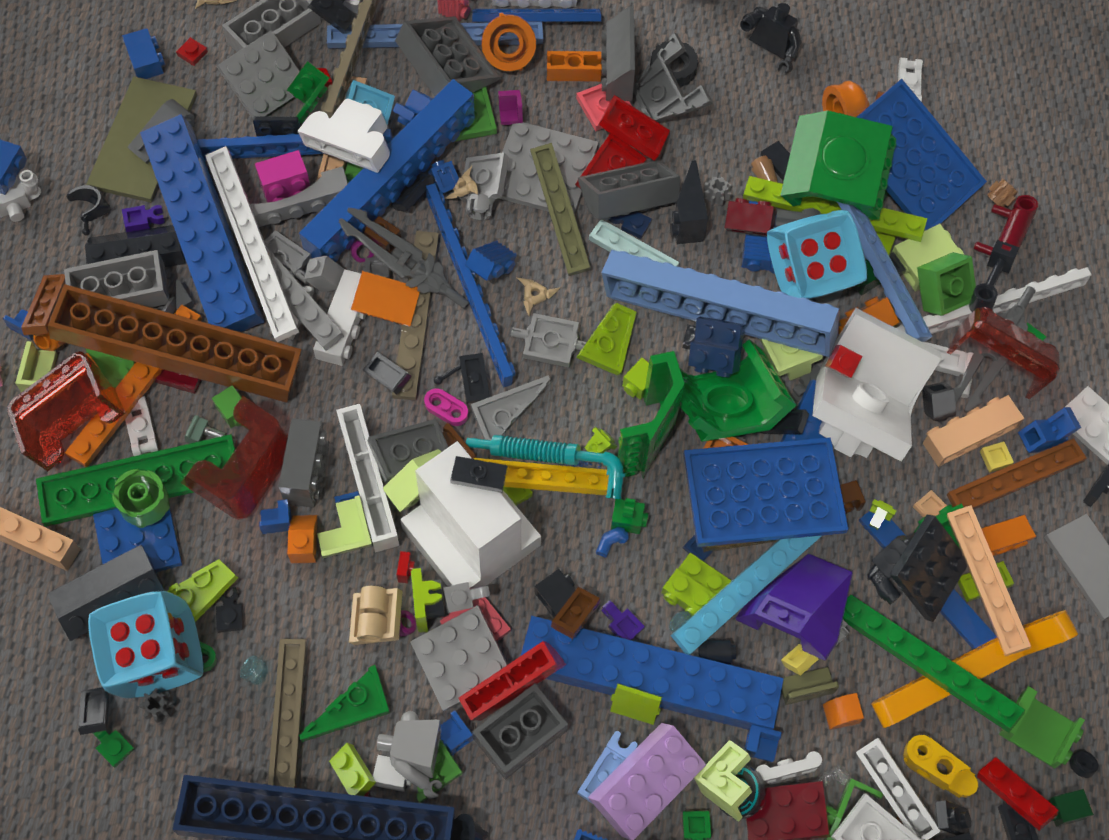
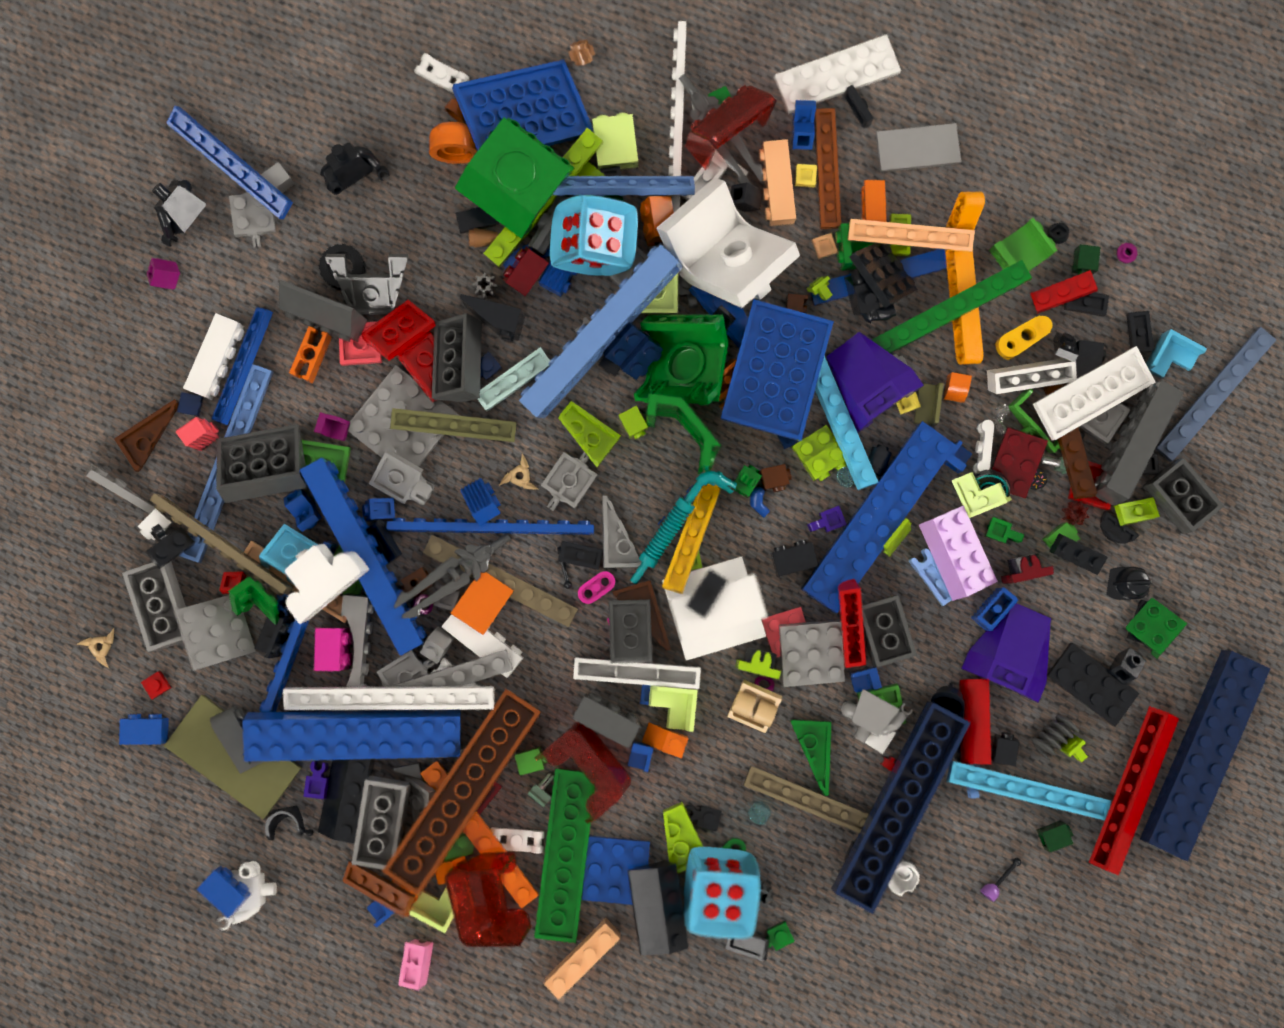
camera: 65 degrees left, 20 degrees up
(146, 509) = (583, 869): bright green brick -> none
(352, 771) = (868, 765): lime plate -> none
(387, 373) = (549, 624): tile -> none
(403, 486) = (663, 633): yellowish green panel -> none
(405, 567) = (722, 669): red plate -> none
(460, 596) = (768, 636): light grey plate -> none
(464, 186) = (400, 503): tan piece -> none
(516, 59) = (282, 408): orange piece -> none
(575, 612) = (817, 555): reddish brown plate -> none
(600, 442) = (675, 476): lime brick -> none
(645, 545) = (775, 478): none -> reddish brown brick
(843, 361) = (698, 259): red brick -> none
(946, 283) = (651, 140): bright green brick -> none
(1005, 249) = (638, 77): piece -> none

